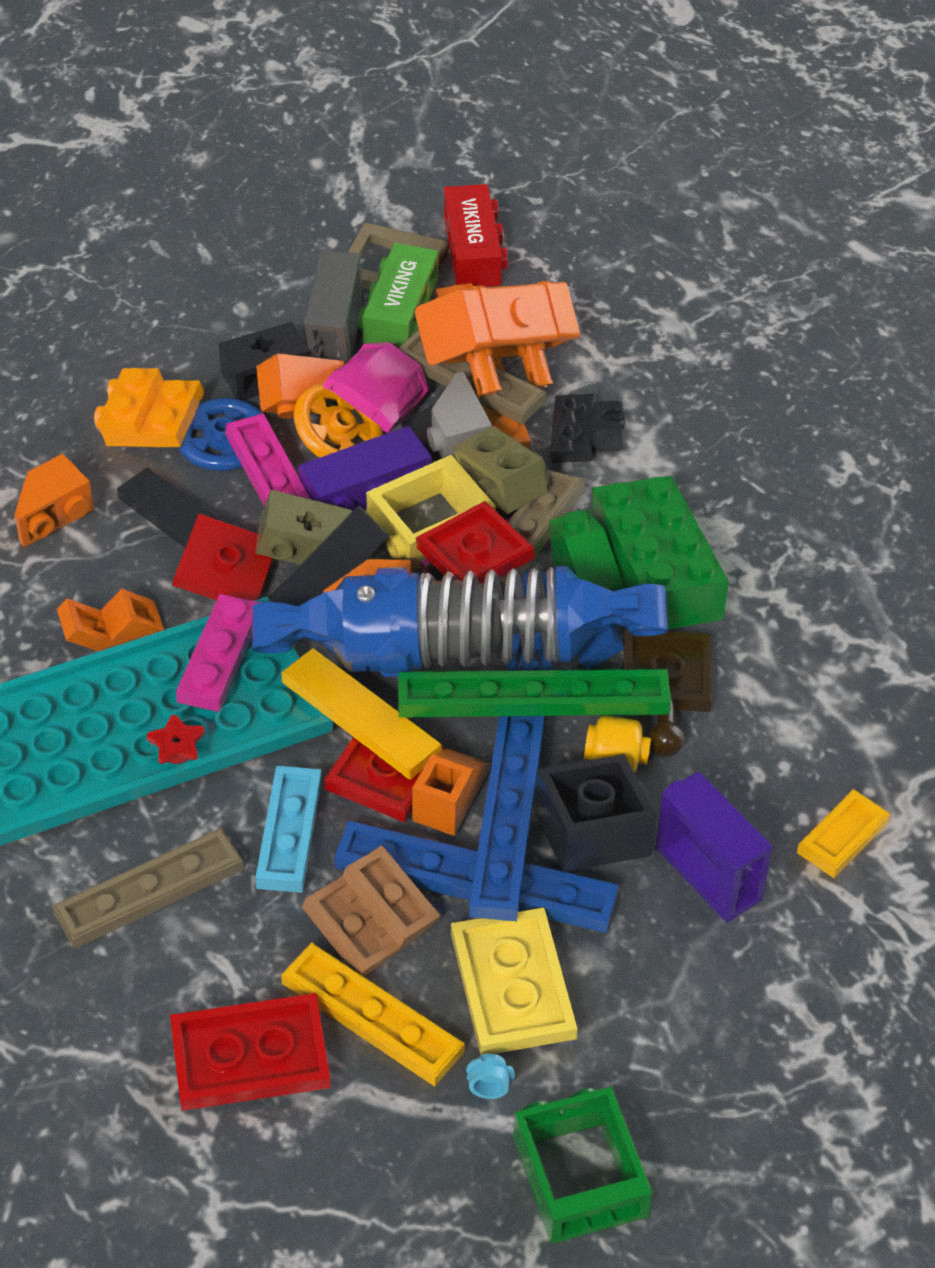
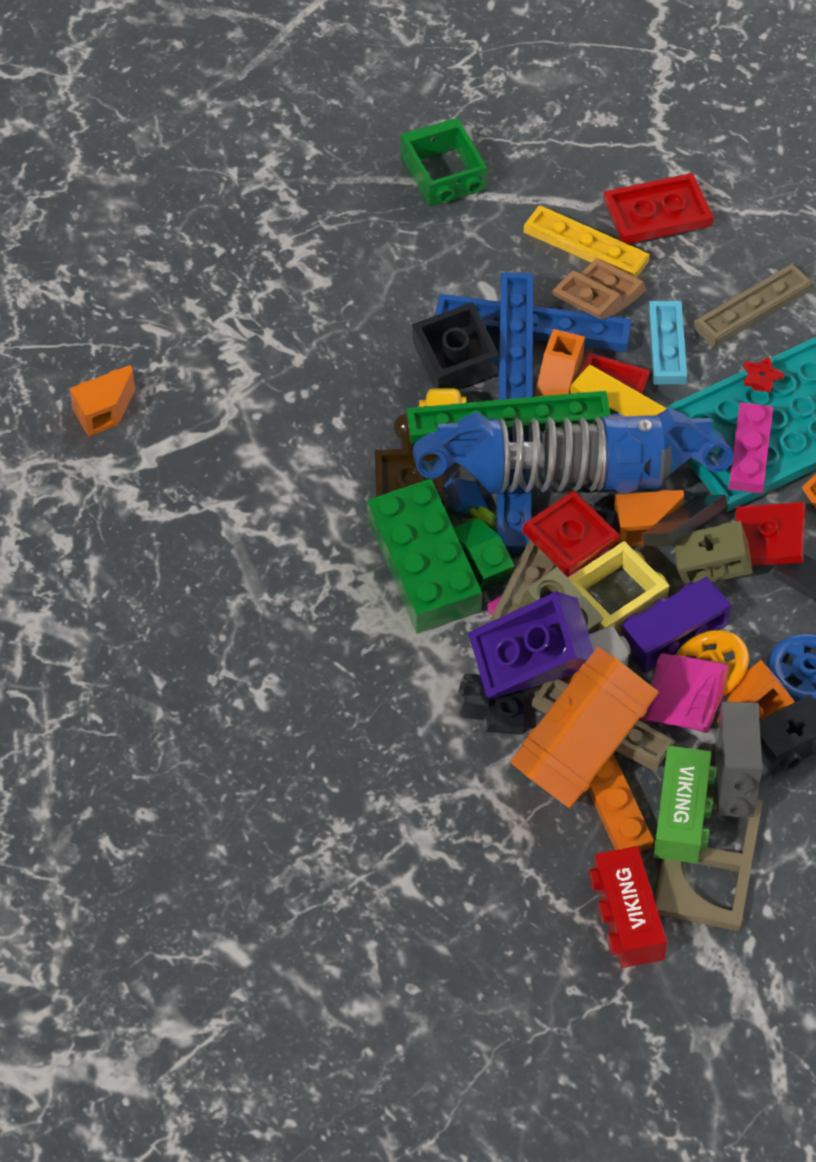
camera: 175 degrees right, 5 degrees up
(263, 457) = (760, 619): dark pink plate -> none
(489, 1076) = (505, 207): medium azure plate -> none
(513, 982) = (494, 249): light yellow plate -> none
(536, 407) = (532, 645): none -> dark purple slope
(713, 846) = (371, 330): dark purple window -> none
(843, 833) = (276, 379): yellow tile -> none

